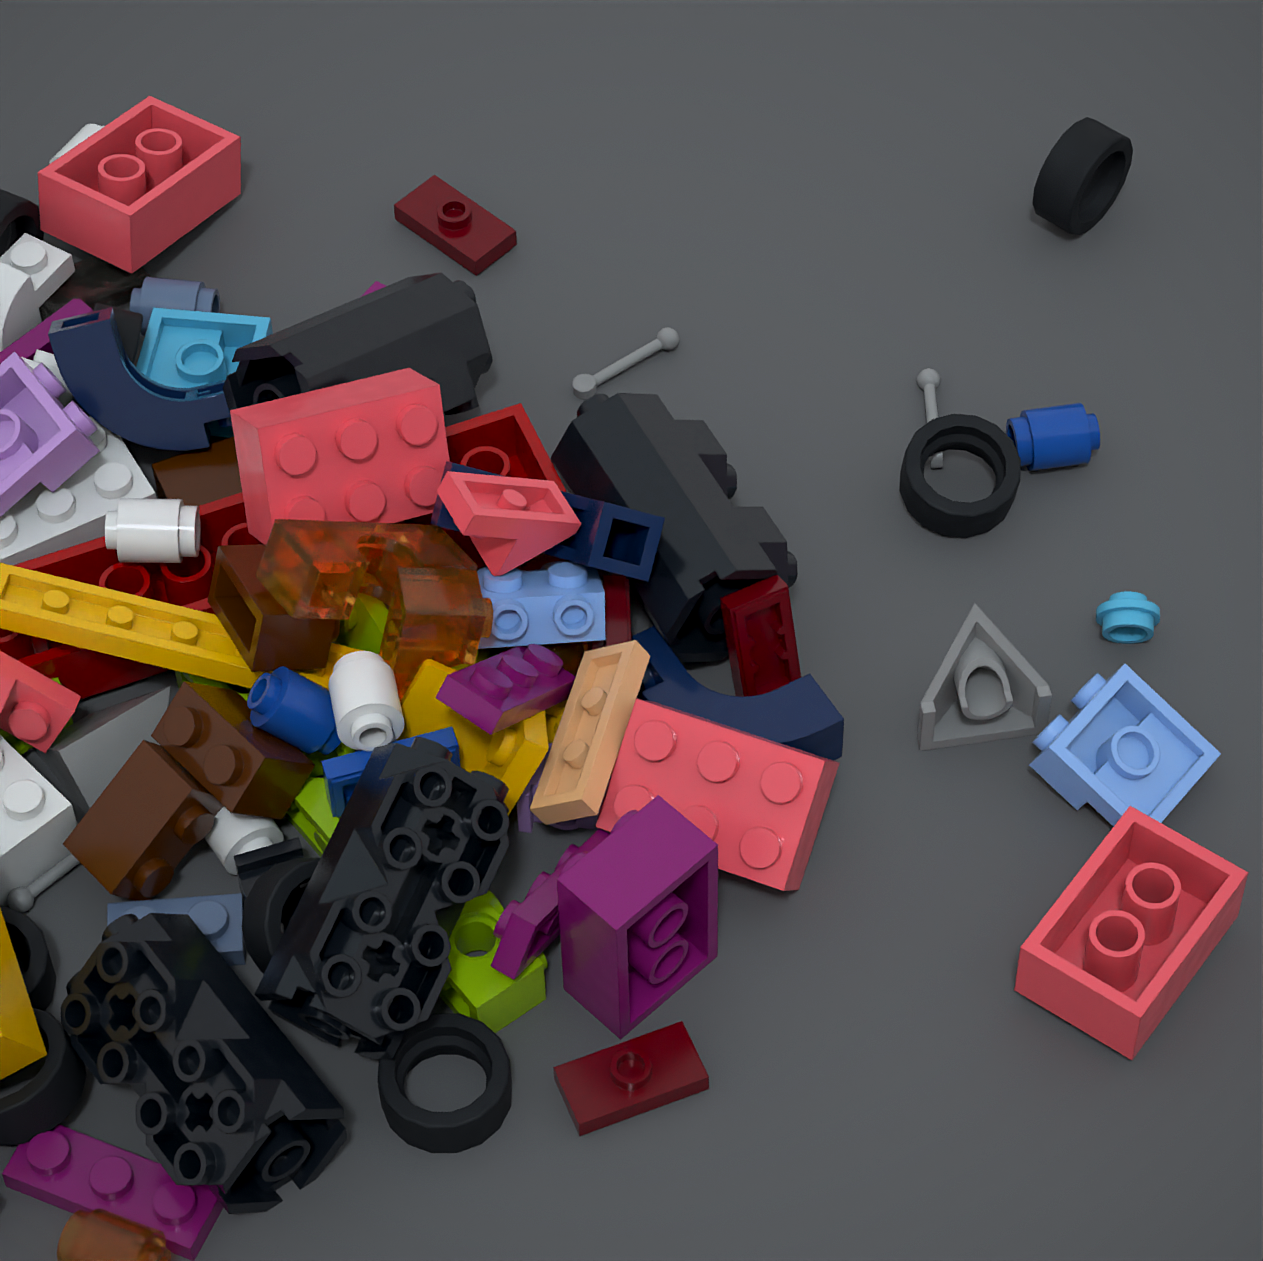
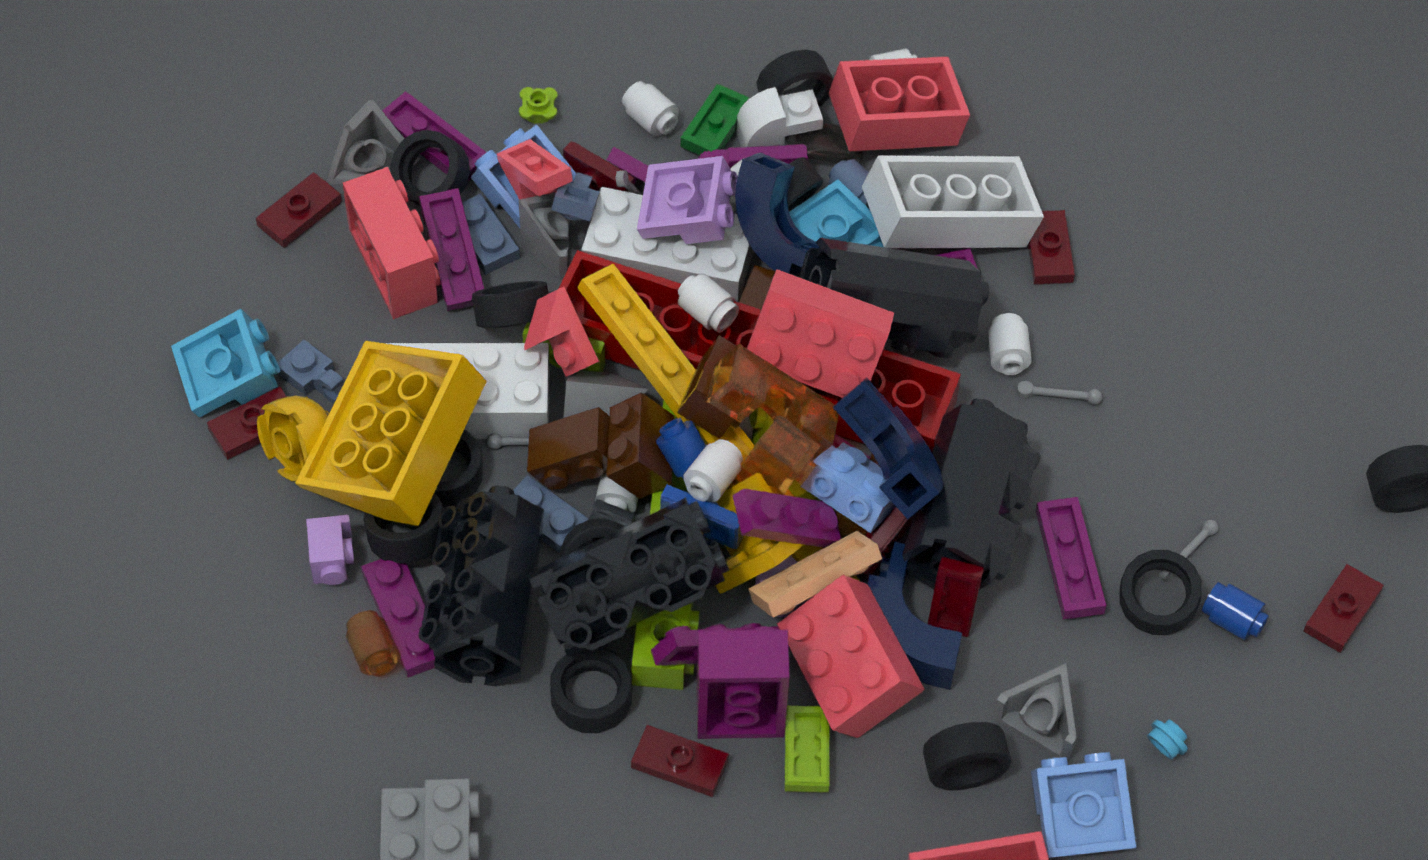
camera: 40 degrees right, 5 degrees up
(313, 238) = (952, 202): none -> white brick
(507, 516) = (866, 430): coral slope -> none
(525, 349) = (1009, 344): none -> white brick
(769, 945) = (806, 749): none -> lime plate
(827, 516) = (1070, 558): none -> magenta plate
(955, 798) = (966, 755): none -> black tyre
(1146, 356) = (1343, 608): none -> dark red plate

